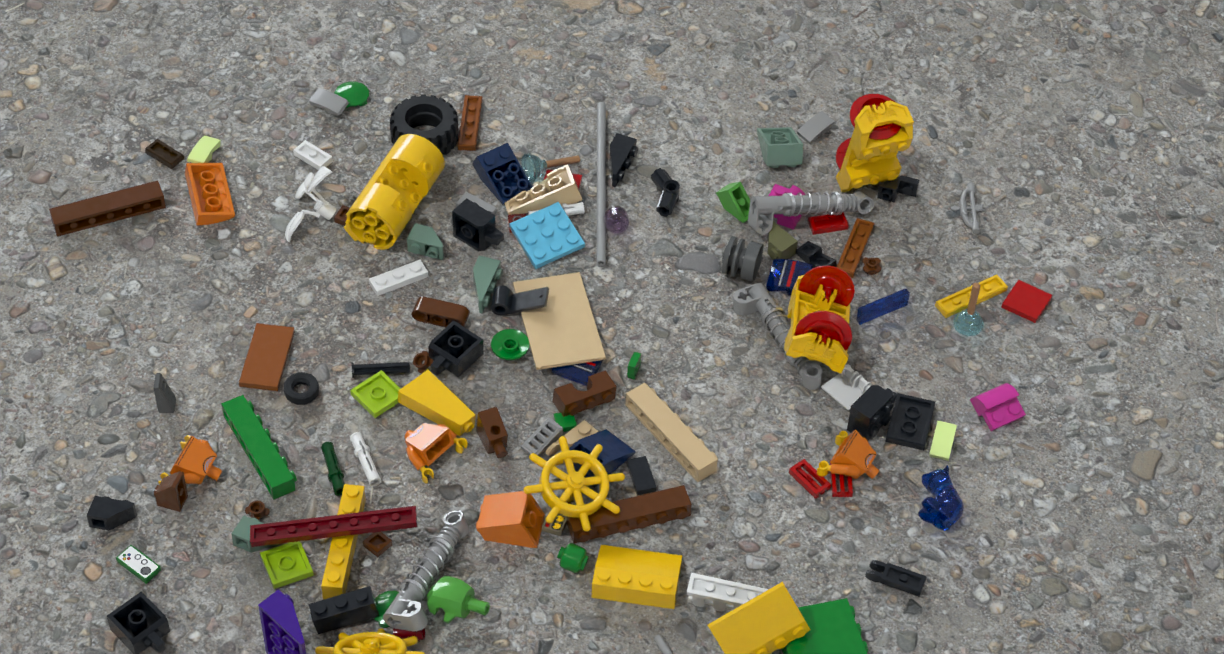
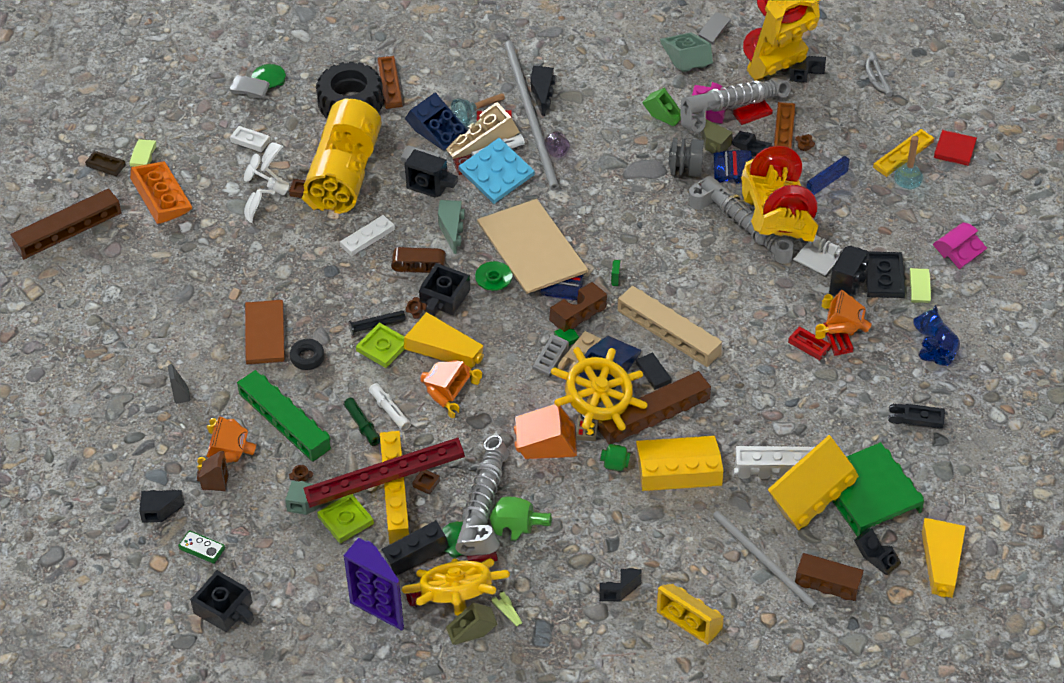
camera: 10 degrees left, 0 degrees up
(425, 242) = (383, 198): sand green slope -> none
(492, 432) = (503, 358): reddish brown torso -> none
(506, 302) = (478, 239): black door -> none
(669, 190) = (597, 107): black piece -> none

